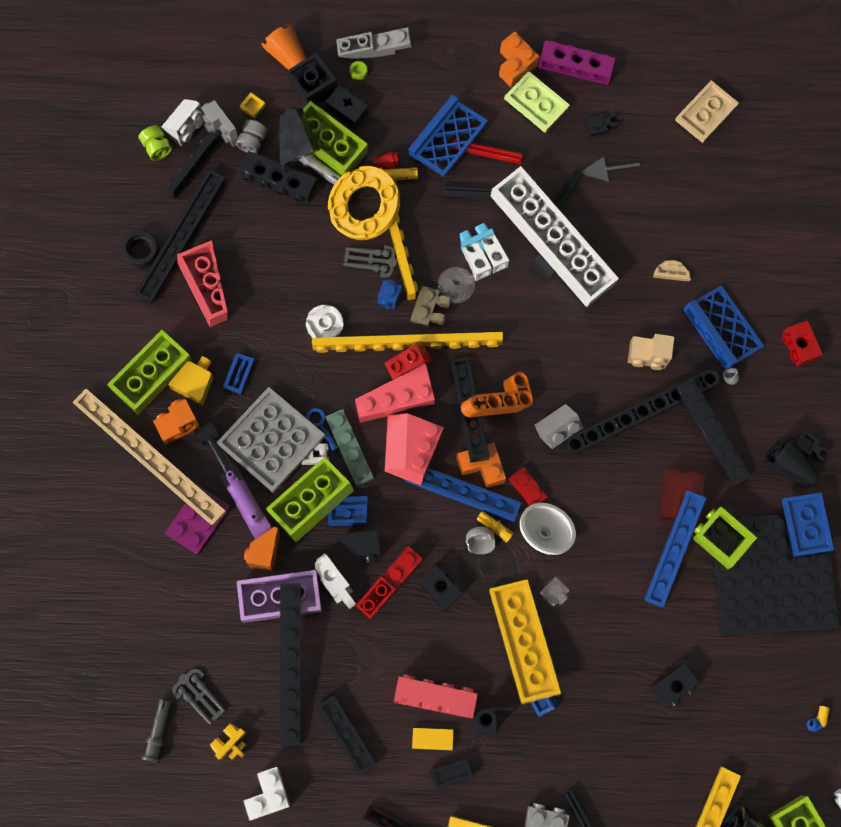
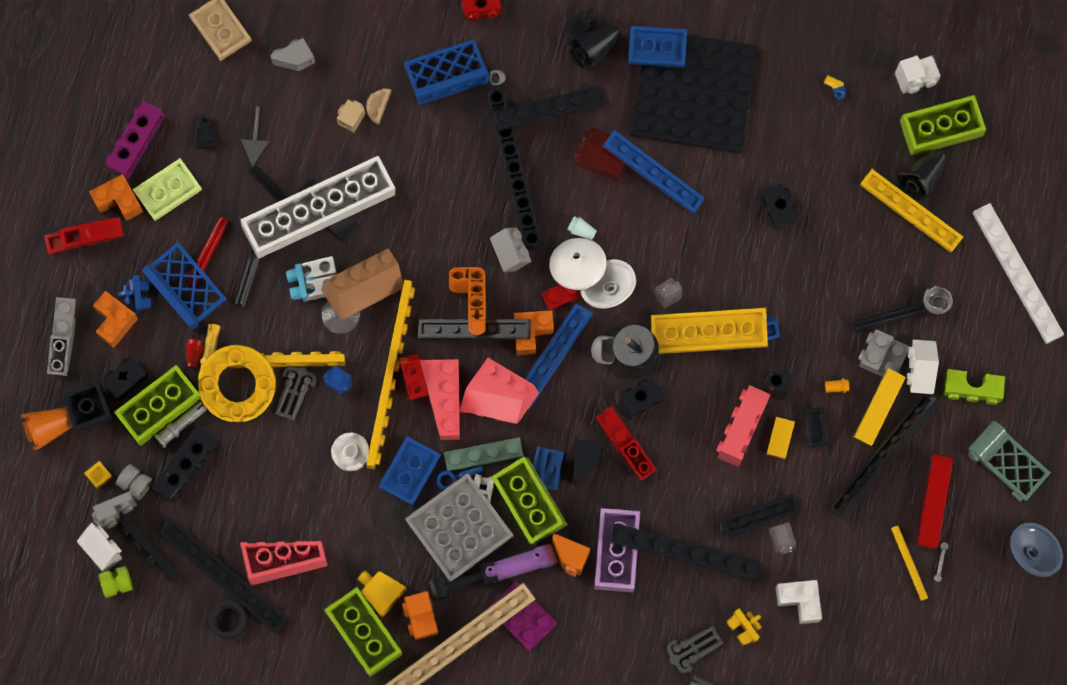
camera: 75 degrees left, 0 degrees up
(233, 388) = (396, 555): blue tile -> none
(295, 136) = (153, 432): black slope -> none
(317, 381) = (409, 471): none -> blue plate
(327, 763) = (782, 538): none -> clear brick
(333, 581) = (612, 496): white piece -> none
(358, 70) = (85, 359): lime tile -> none
(400, 87) = (118, 319): none -> orange brick
(422, 102) = (136, 286): none -> blue hips
(425, 306) = (357, 349): dark tan plate -> none
(474, 40) = (83, 235): none -> red slope
(487, 294) = (363, 284): none -> medium nougat slope
(489, 571) = (636, 347): none -> wheel
(496, 527) = (593, 332): yellow axle -> none
(500, 786) = (837, 386): none -> light orange pin
(557, 504) = (579, 272): none -> white dish
(599, 491) = (581, 228): none -> light aqua cone
(651, 352) = (458, 140): tan brick -> none
(654, 247) = (350, 115): none -> tan brick
(697, 183) = (294, 57): none -> light grey slope
(726, 561) = (669, 115): lime window -> none

